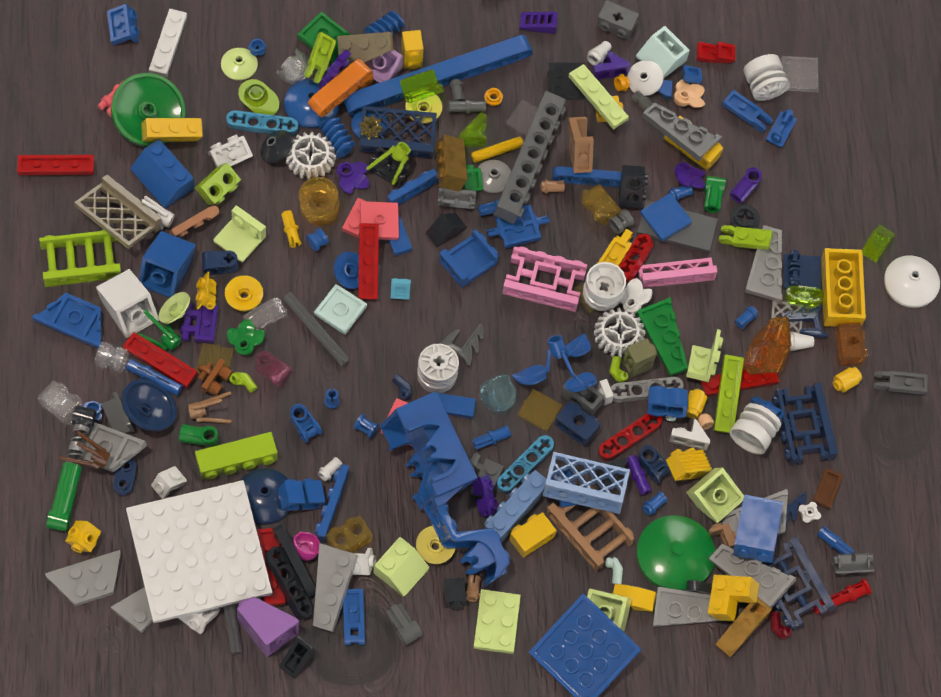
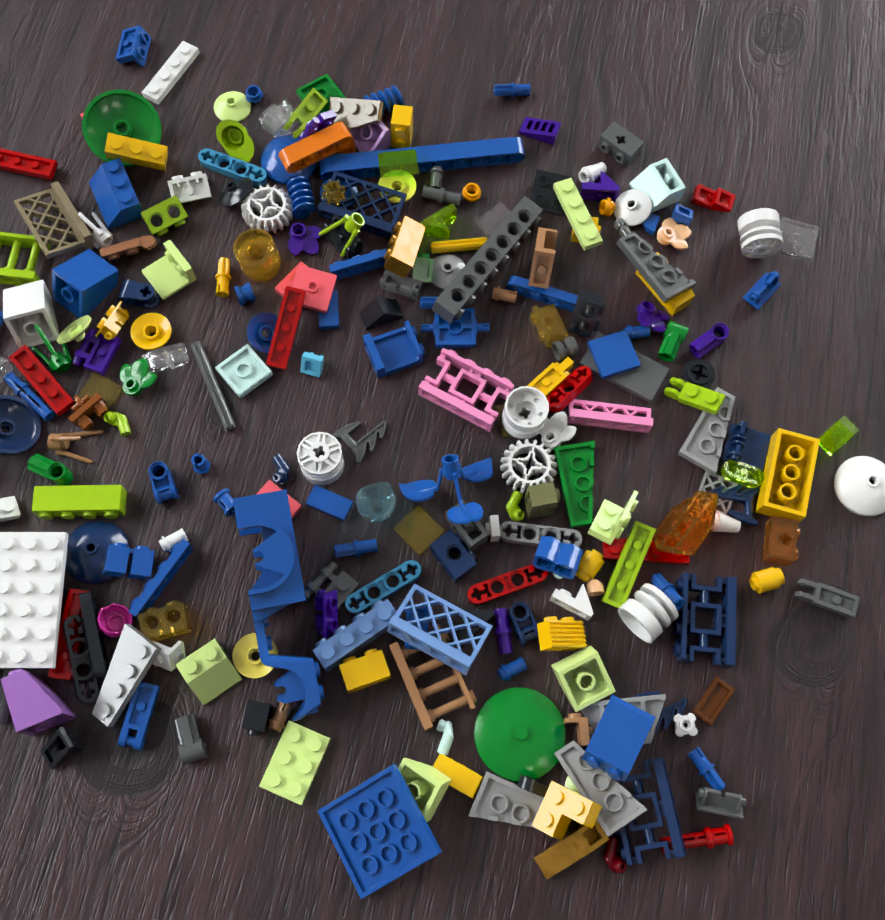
camera: 20 degrees right, 5 degrees up
(275, 370) = (153, 417): clear pink piece -> none
(747, 110) = (730, 264): blue hinge -> none
(749, 315) = (677, 479): blue pin -> none

